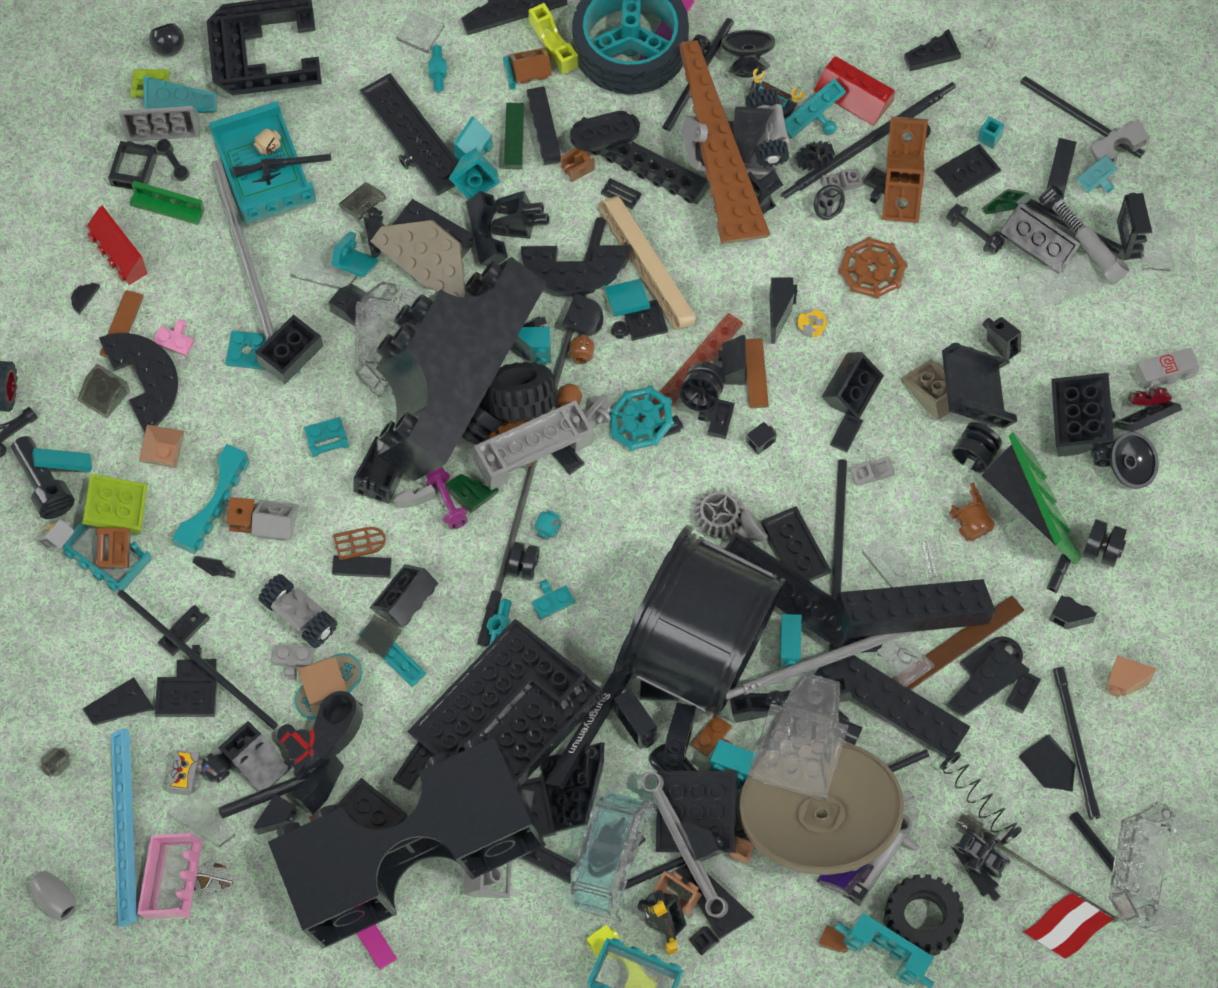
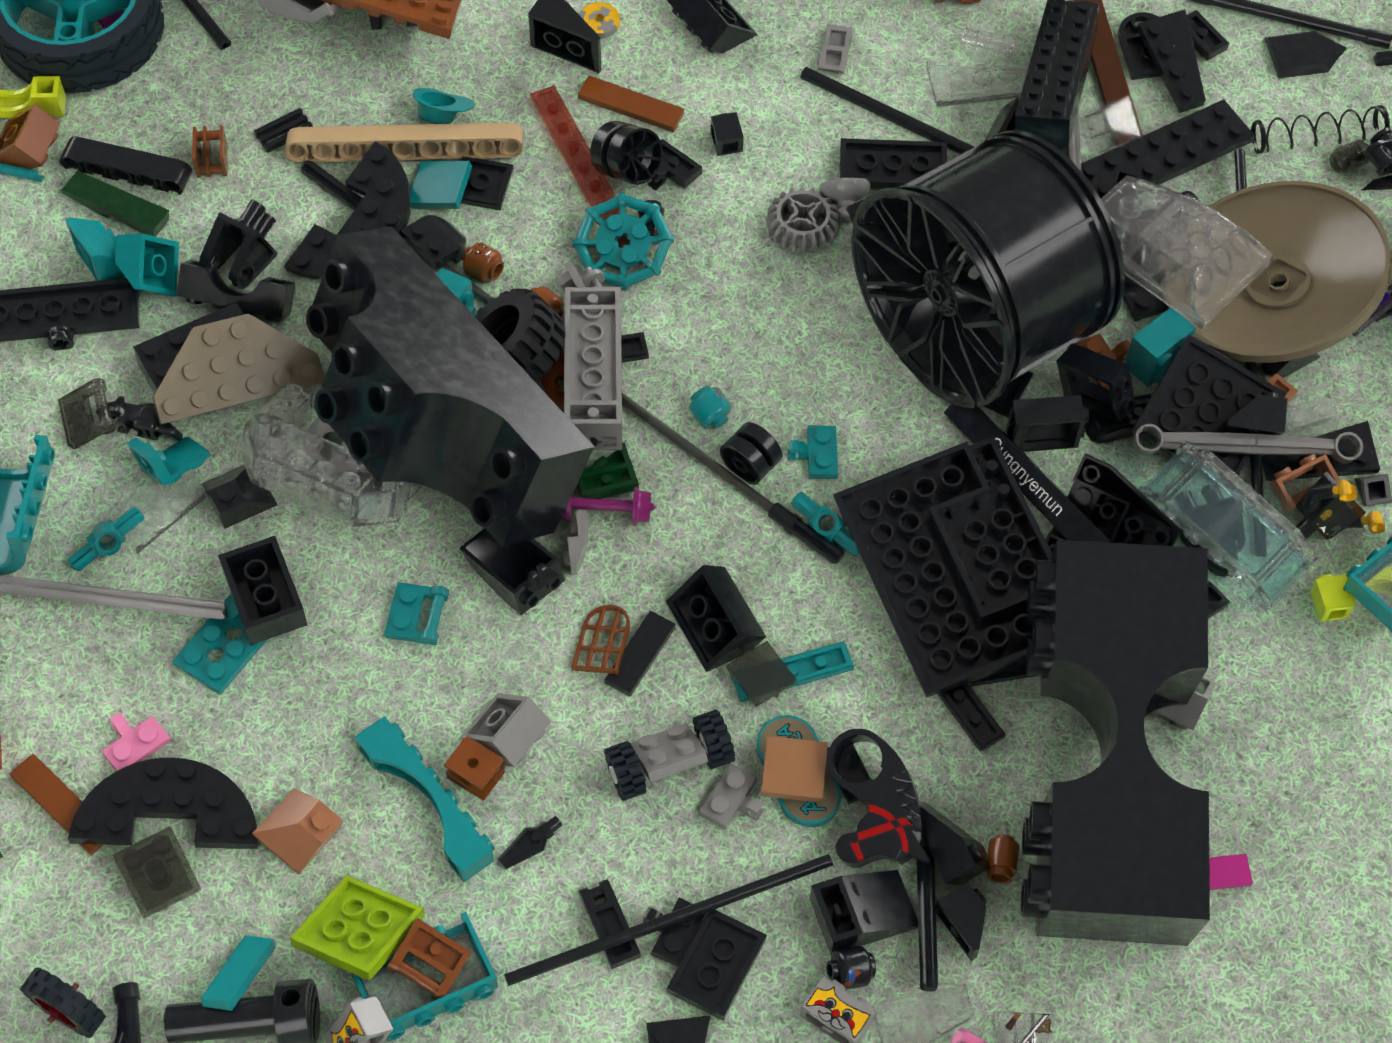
camera: 65 degrees left, 5 degrees down
(287, 255) = (95, 548): none -> teal axle
(371, 807) = (1005, 795): black plate -> none
(604, 131) = (190, 97): black tile -> none
(617, 326) = (475, 208): black plate -> none
(650, 160) = (253, 87): black brick -> none
(686, 266) = (440, 107): none -> teal piece
(734, 360) = (605, 102): black slope -> none
(846, 432) = (768, 52): black tile -> none

